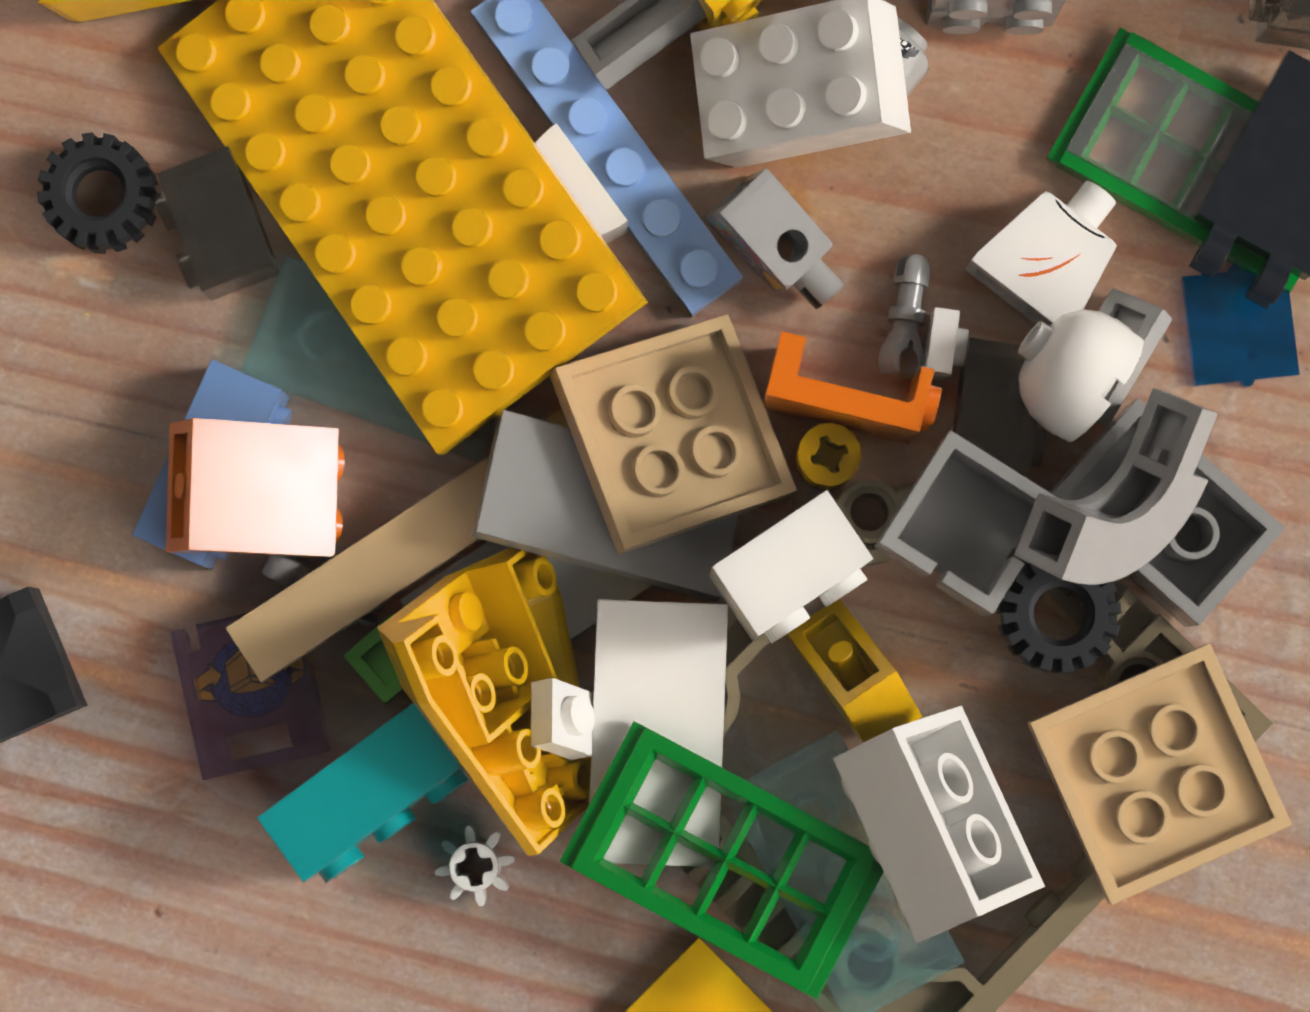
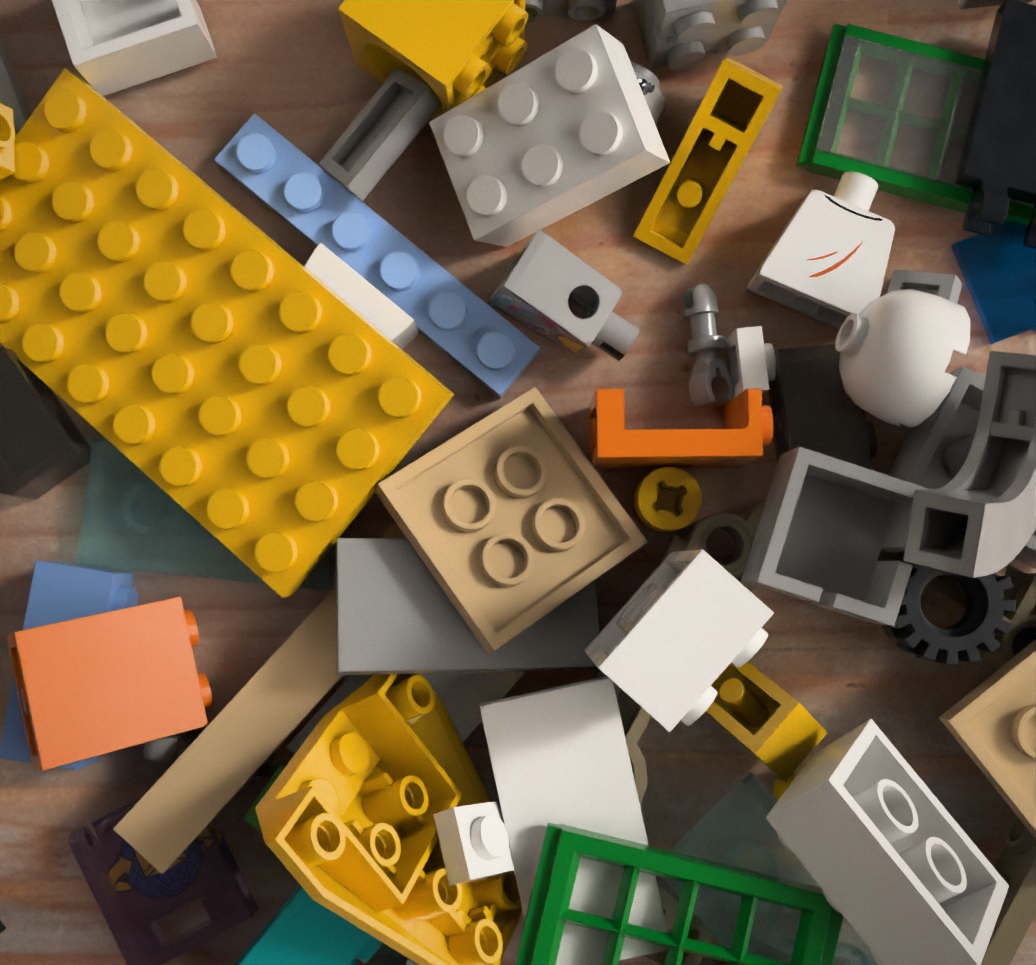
camera: 20 degrees left, 0 degrees up
(956, 132) = (707, 159): none -> yellow slope

